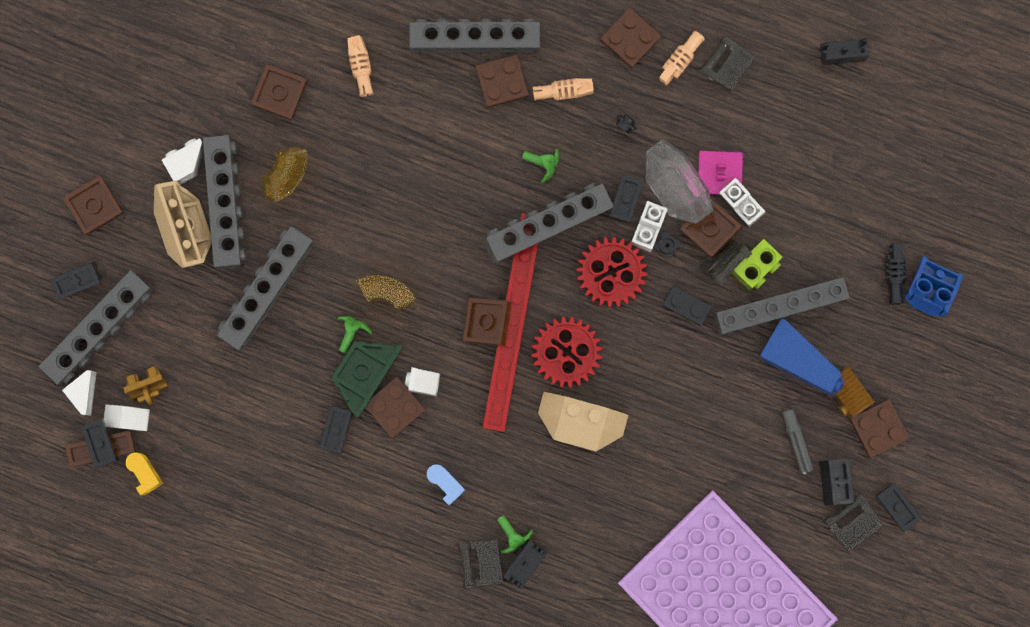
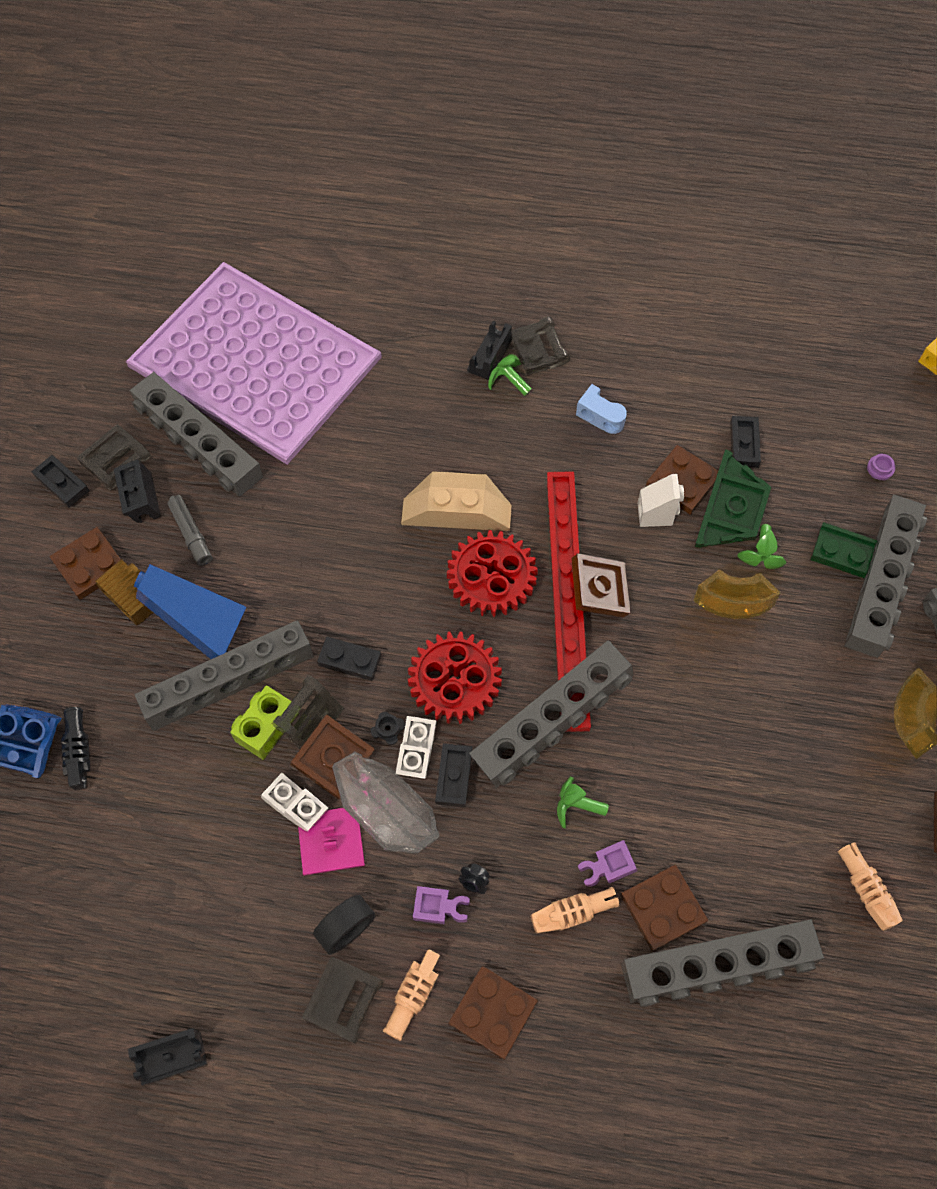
camera: 170 degrees right, 20 degrees down
(234, 385) = (881, 467): none -> medium lavender plate
(289, 319) = (843, 550): none -> dark green plate
(529, 115) = (613, 863): none -> medium lavender plate
(657, 112) = (433, 906): none -> medium lavender plate
(720, 106) = (344, 924): none -> black tyre
(813, 579) = (166, 405): none -> dark grey brick

